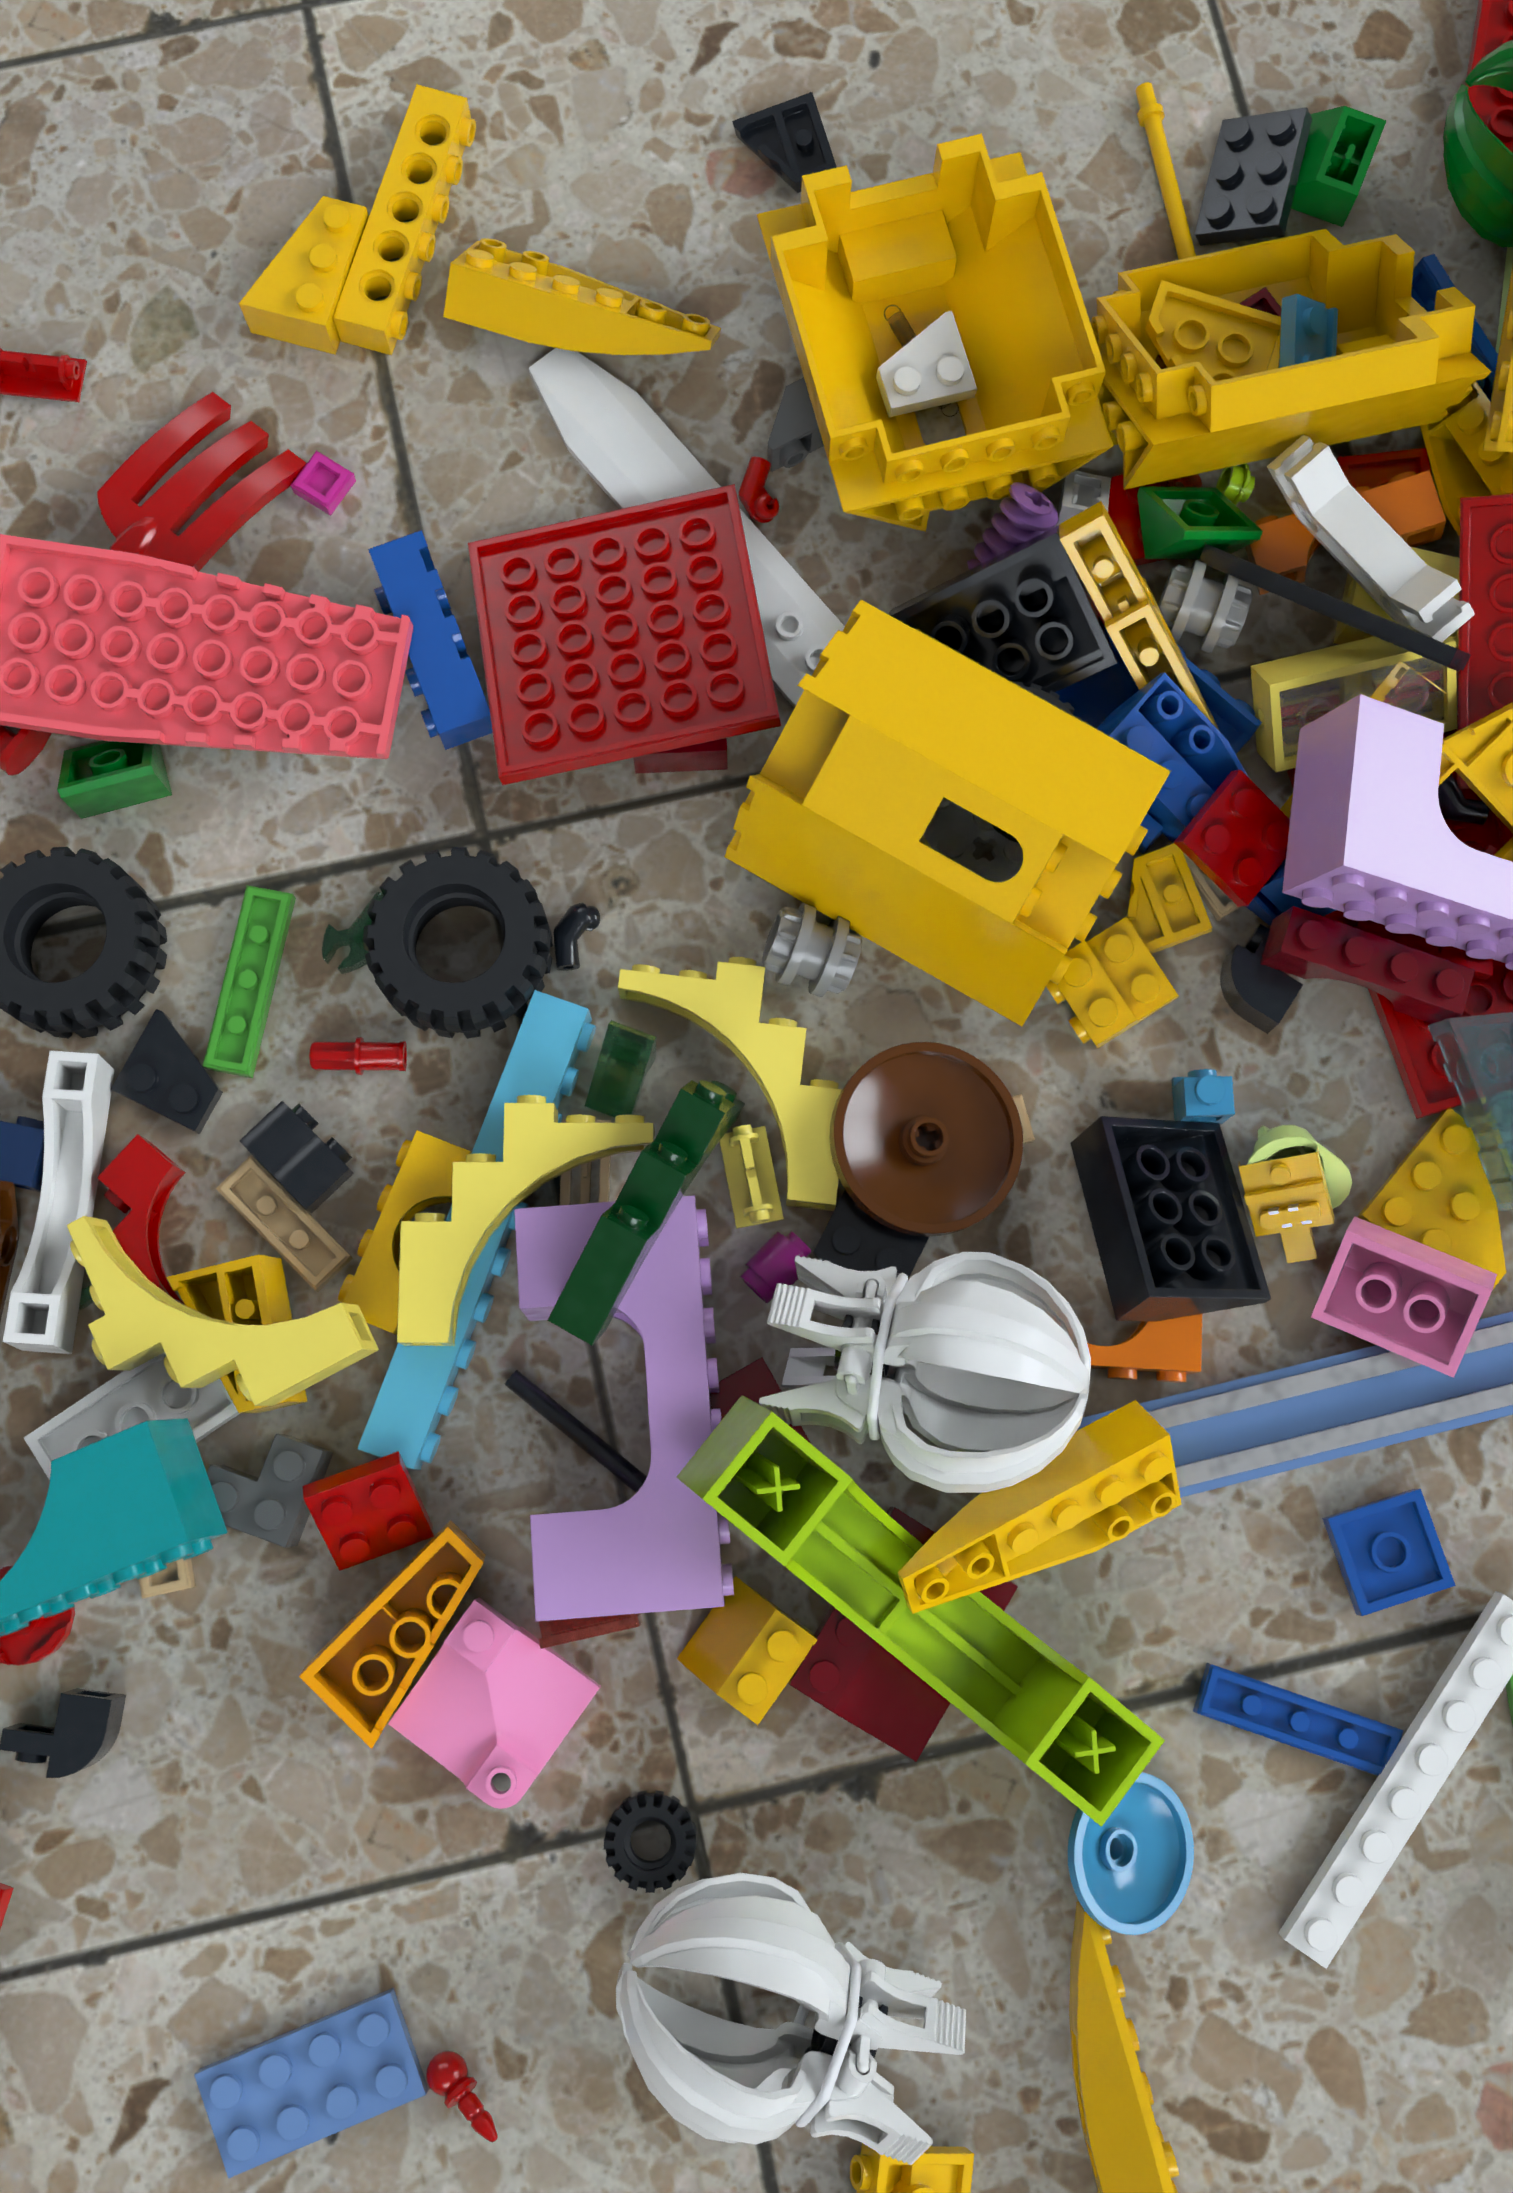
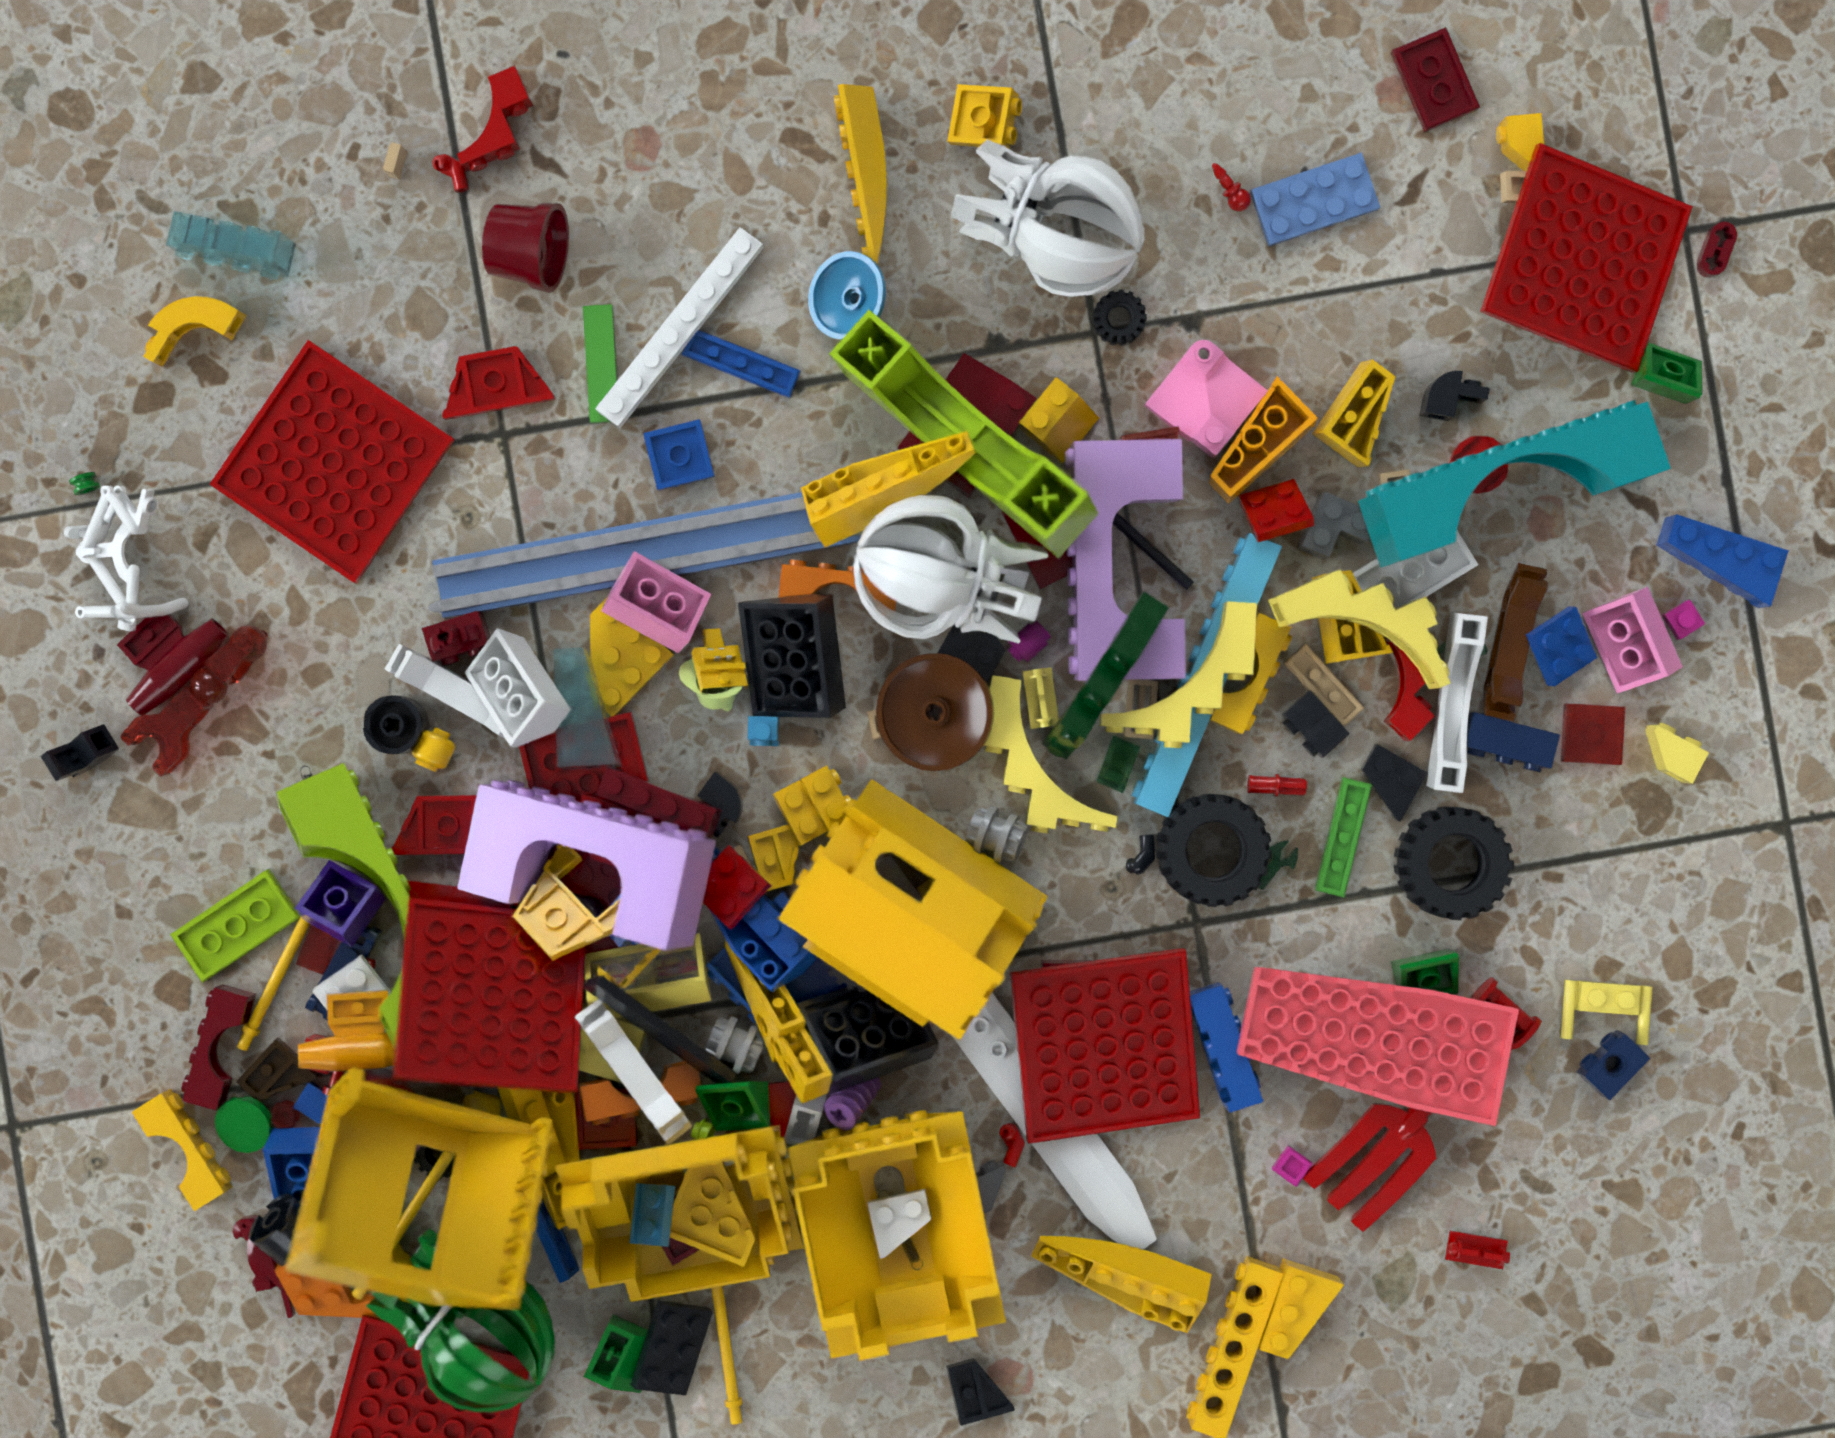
camera: 175 degrees left, 10 degrees up
(231, 1691) = (1356, 413): none -> yellow wedge

